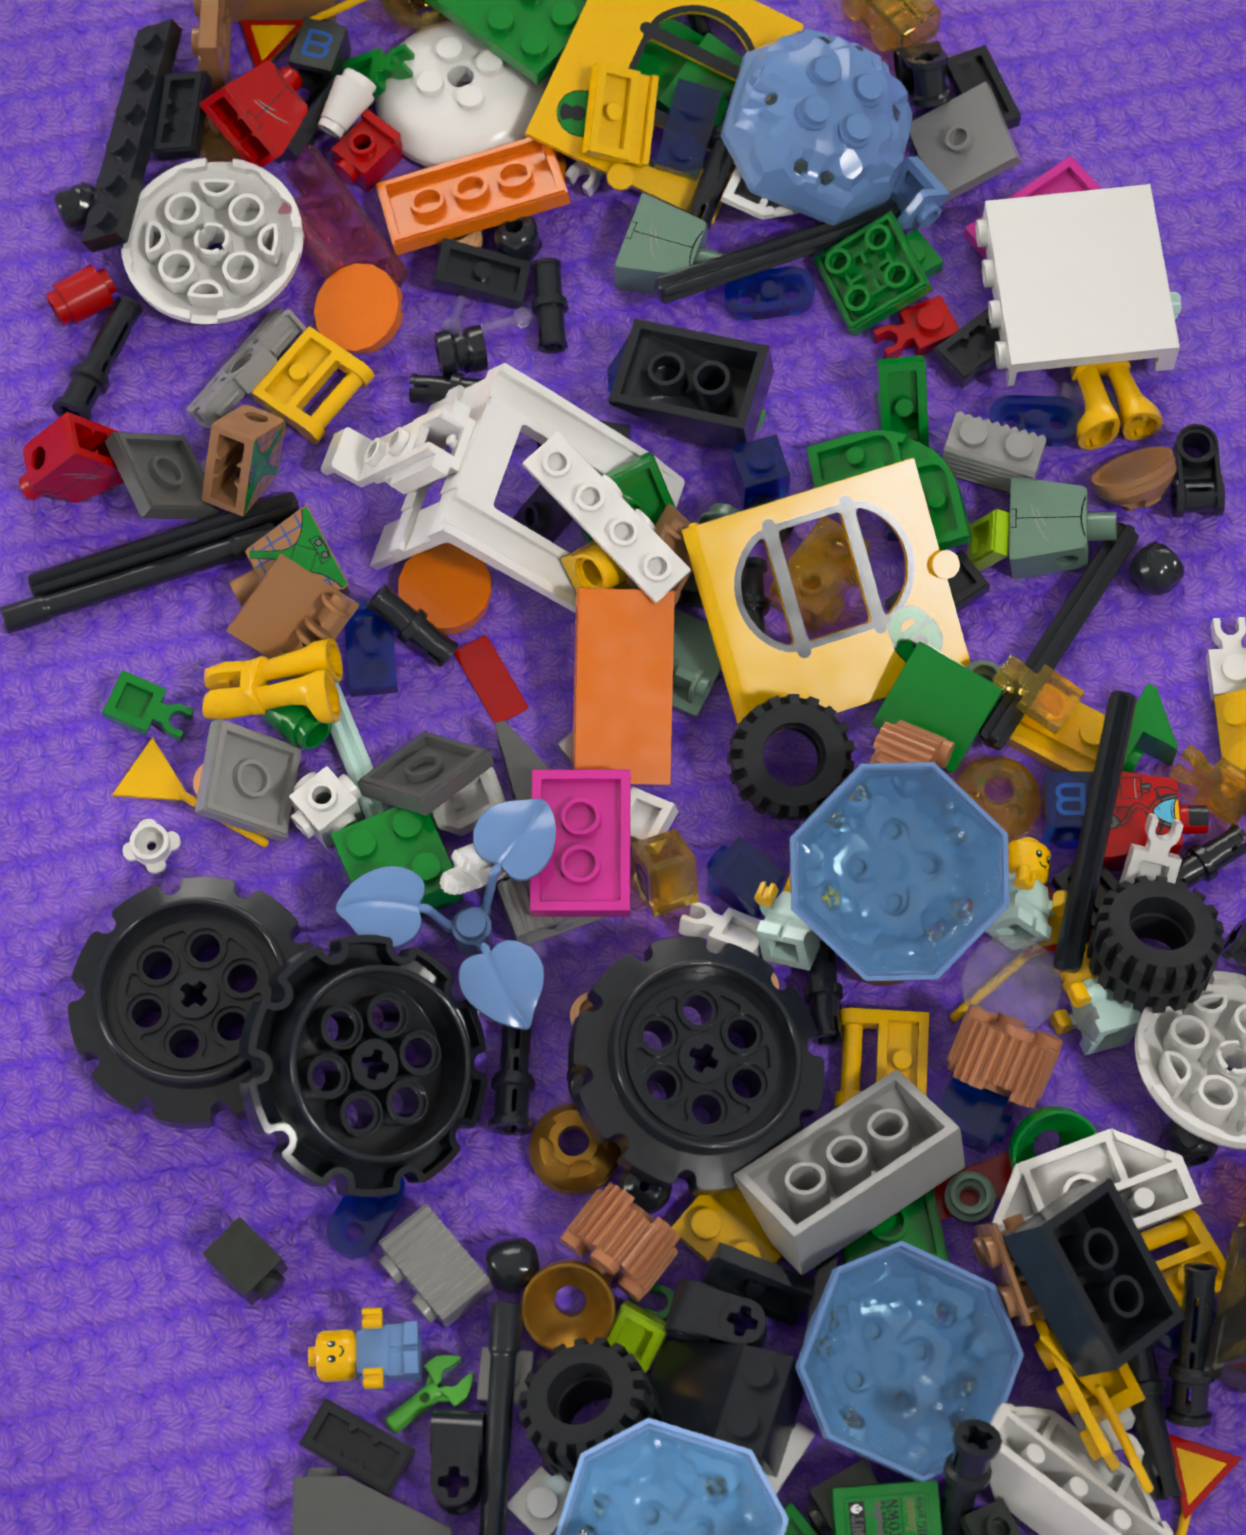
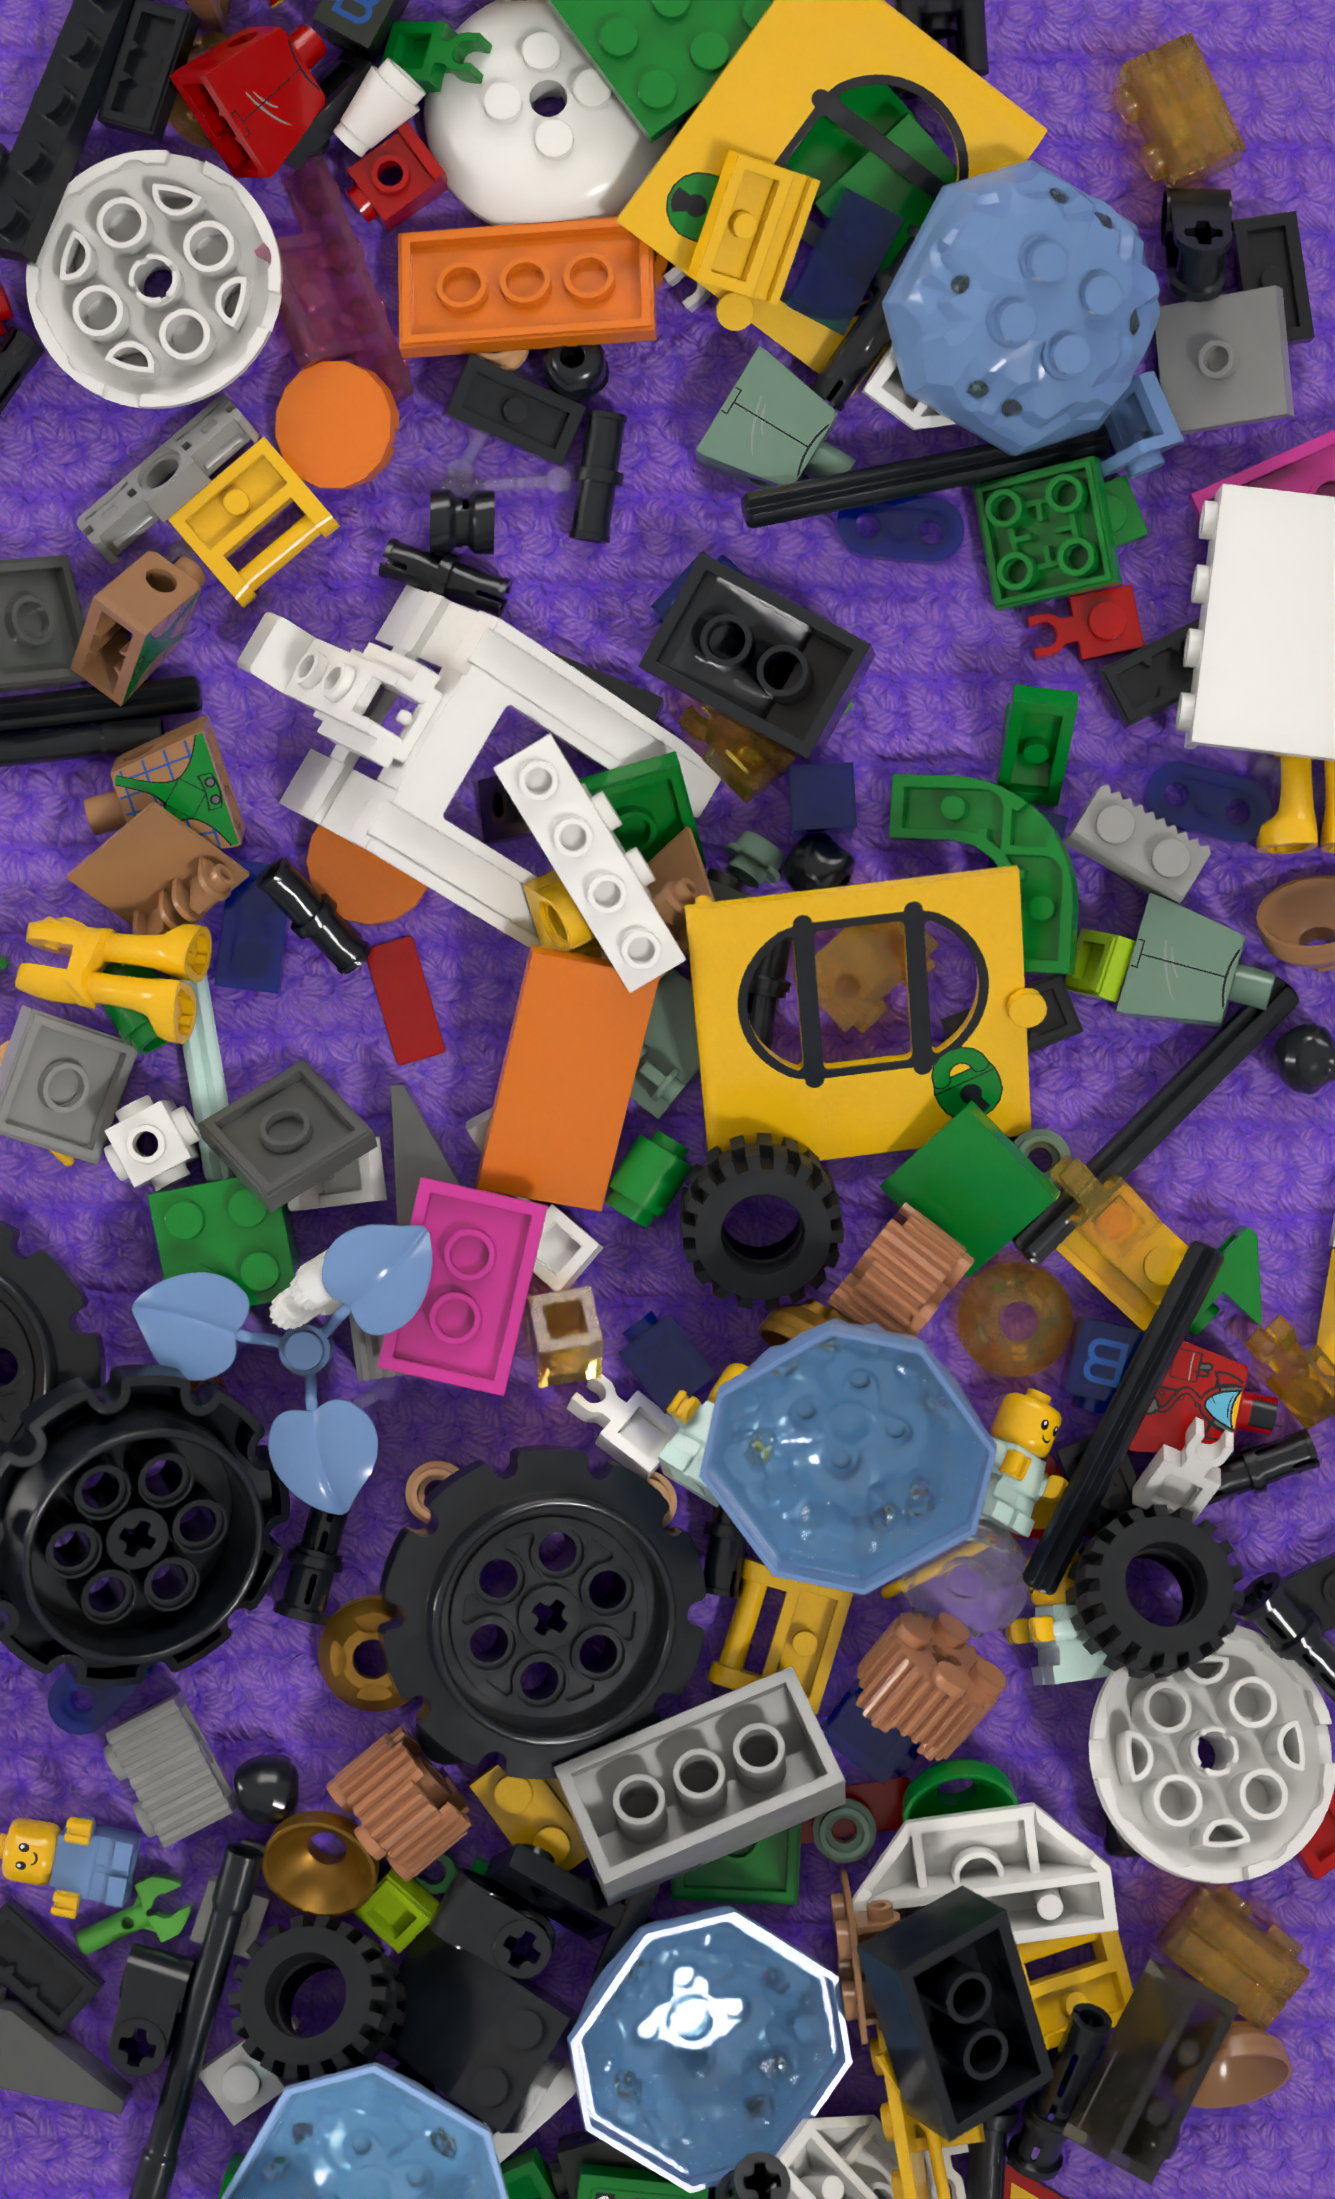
camera: 10 degrees right, 20 degrees up
(689, 457) = (735, 754): none -> clear yellow plate
(699, 754) = (648, 1178): none -> green brick

